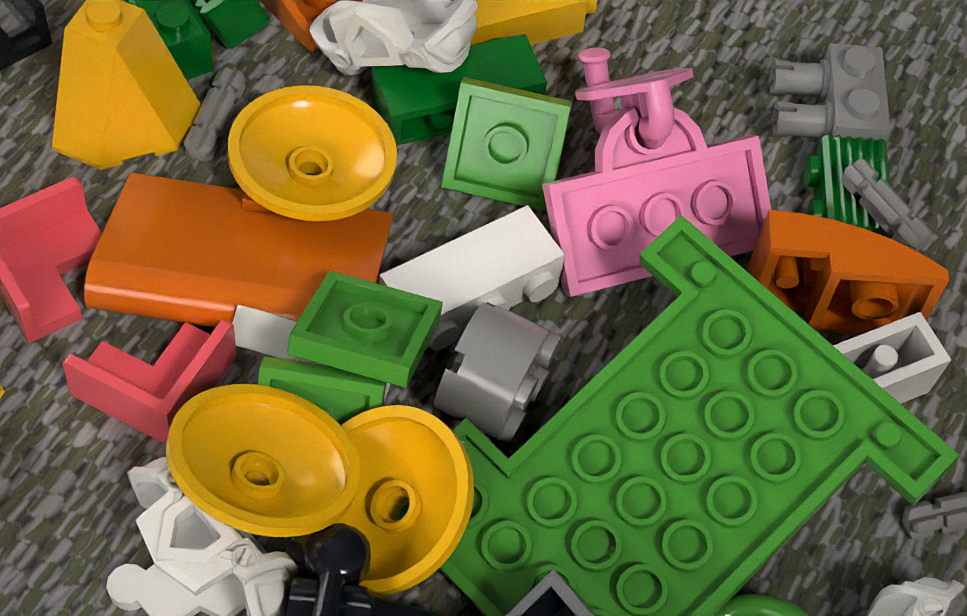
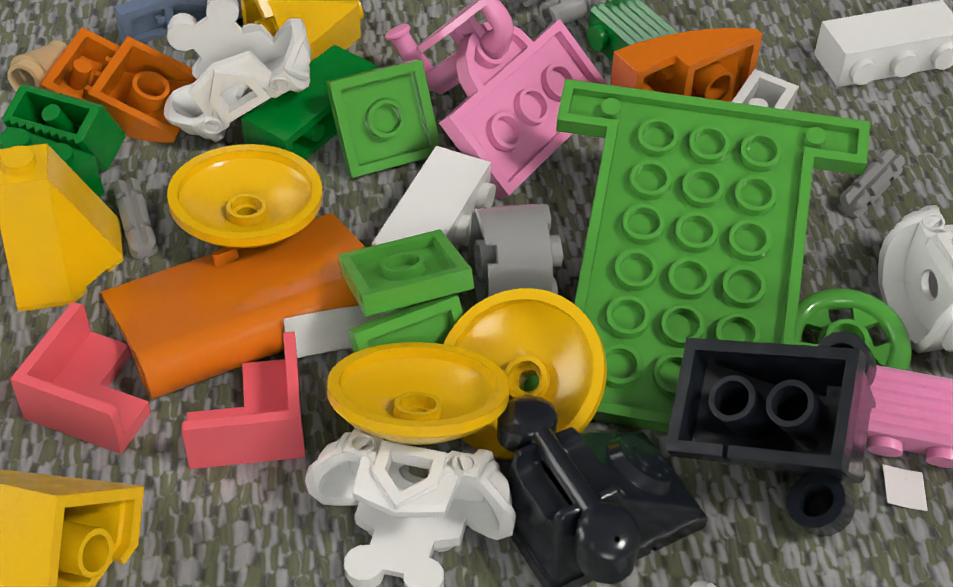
camera: 30 degrees left, 10 degrees down
(885, 205) = (666, 20): light grey axle -> none

